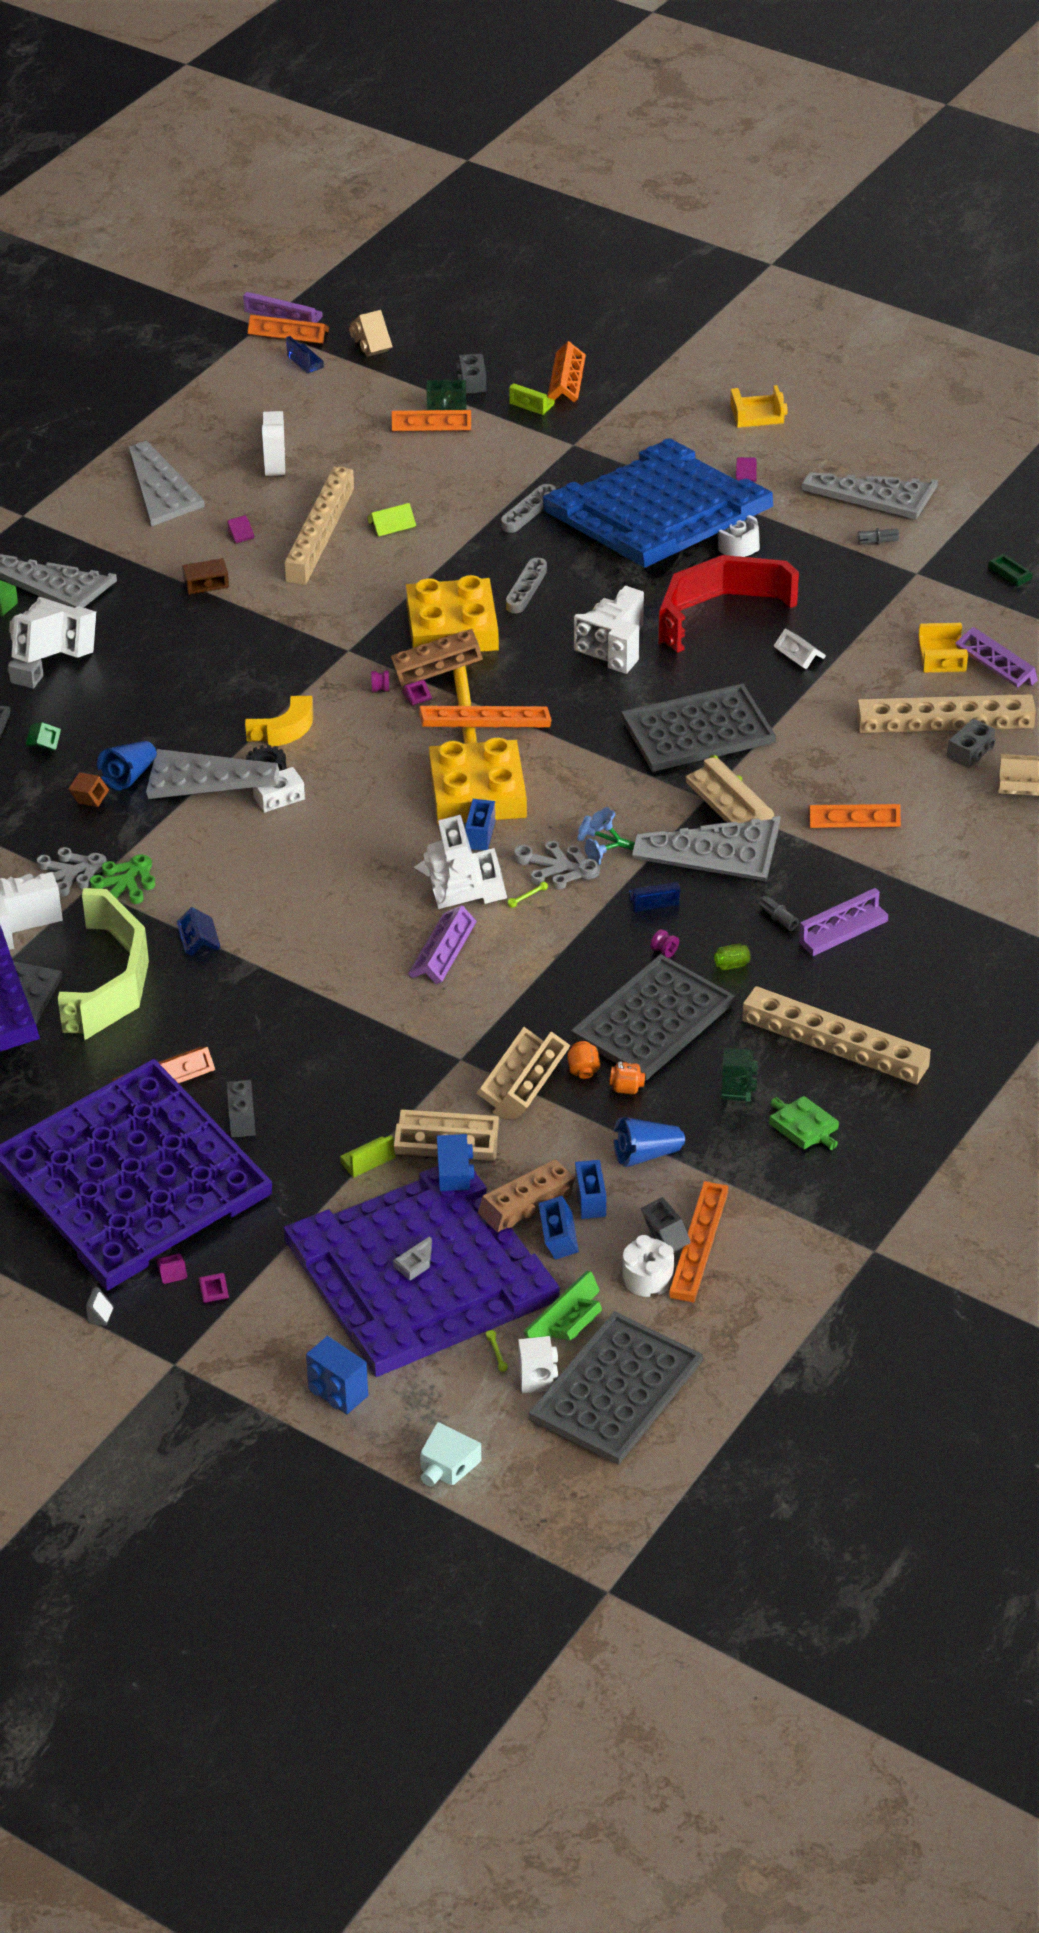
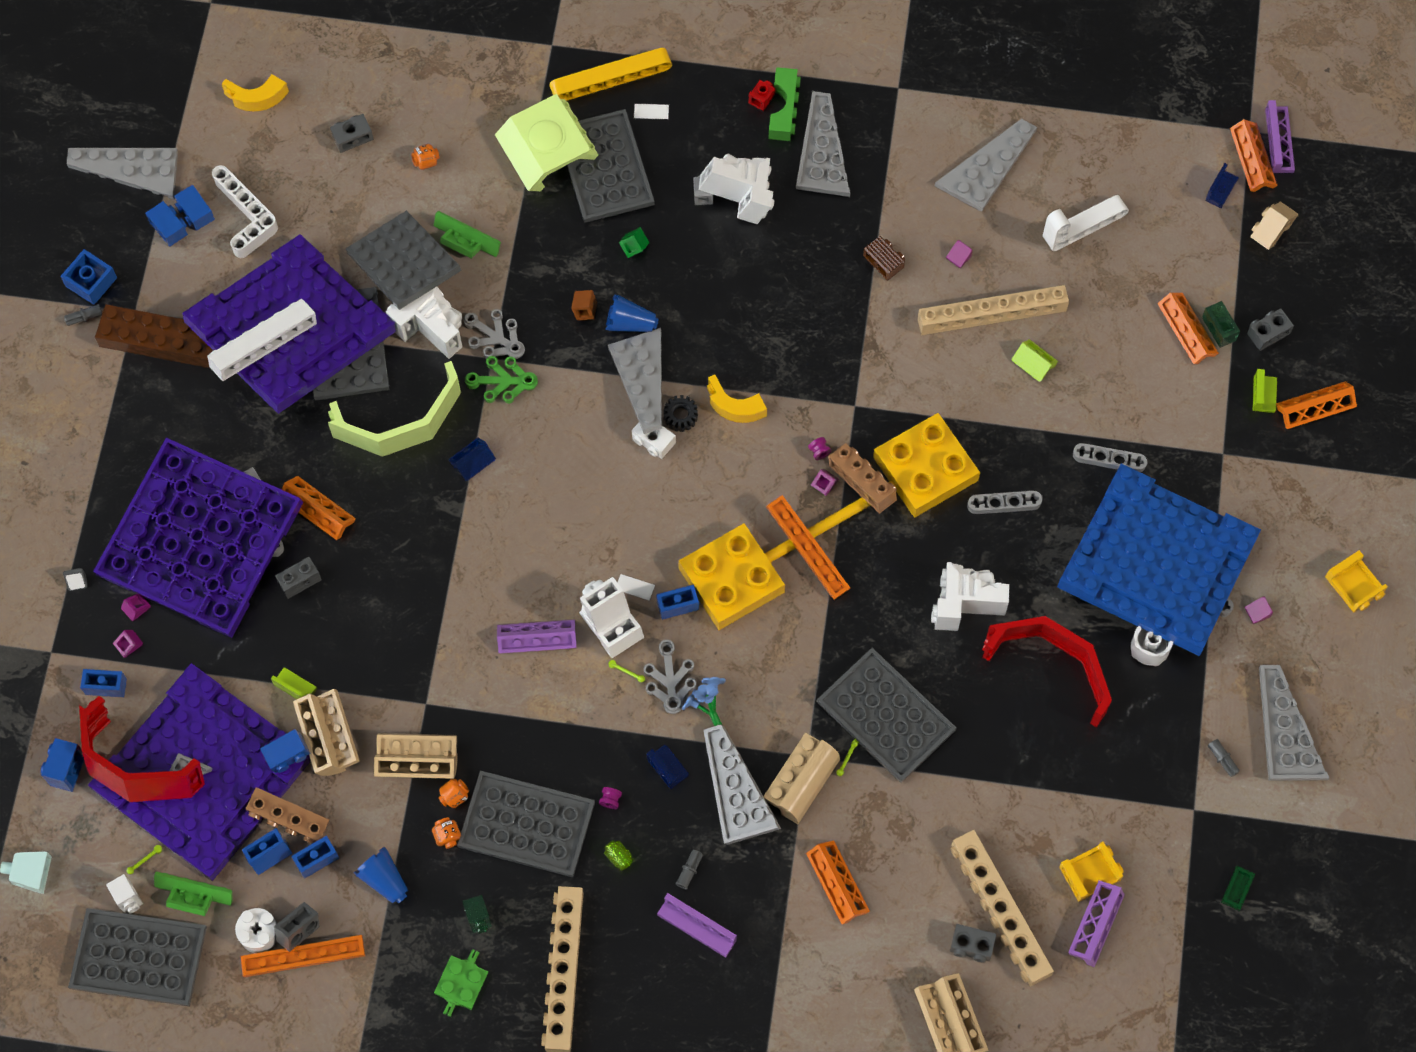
camera: 65 degrees right, 25 degrees up
(255, 1312) = (103, 683): none -> blue brick
(382, 1314) = (133, 786): none -> red panel
(797, 648) = (1031, 753): white panel -> none

